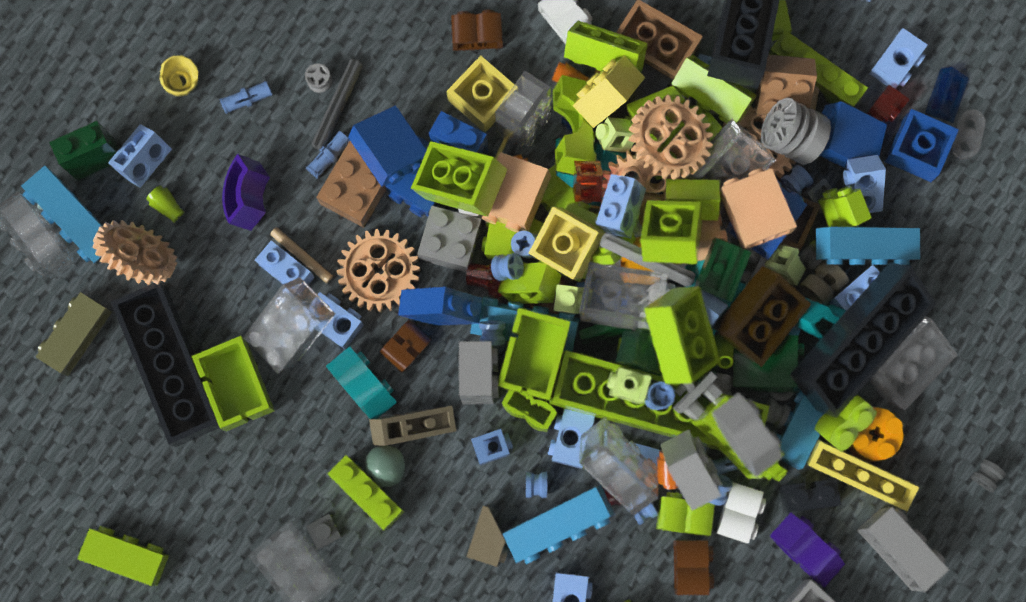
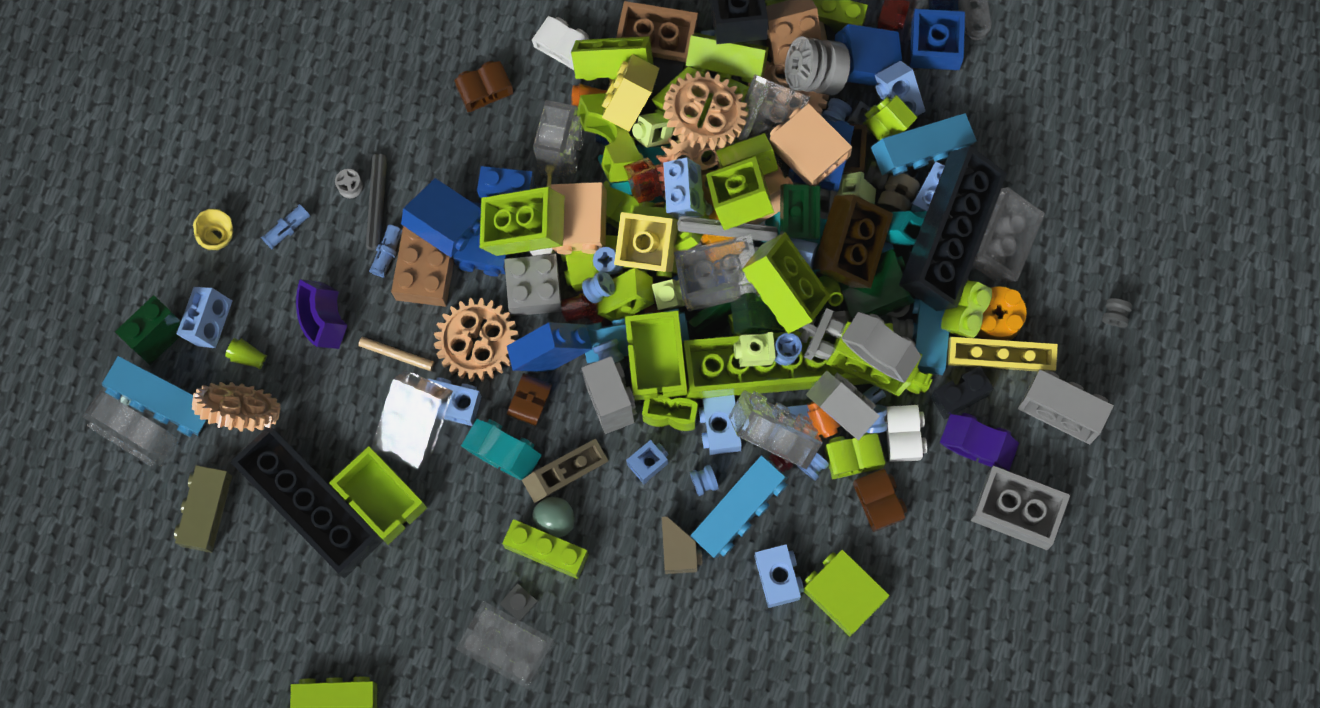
camera: 20 degrees left, 5 degrees down
(282, 265) = (381, 368): light blue brick -> none
(480, 93) = (509, 140): light yellow brick -> none

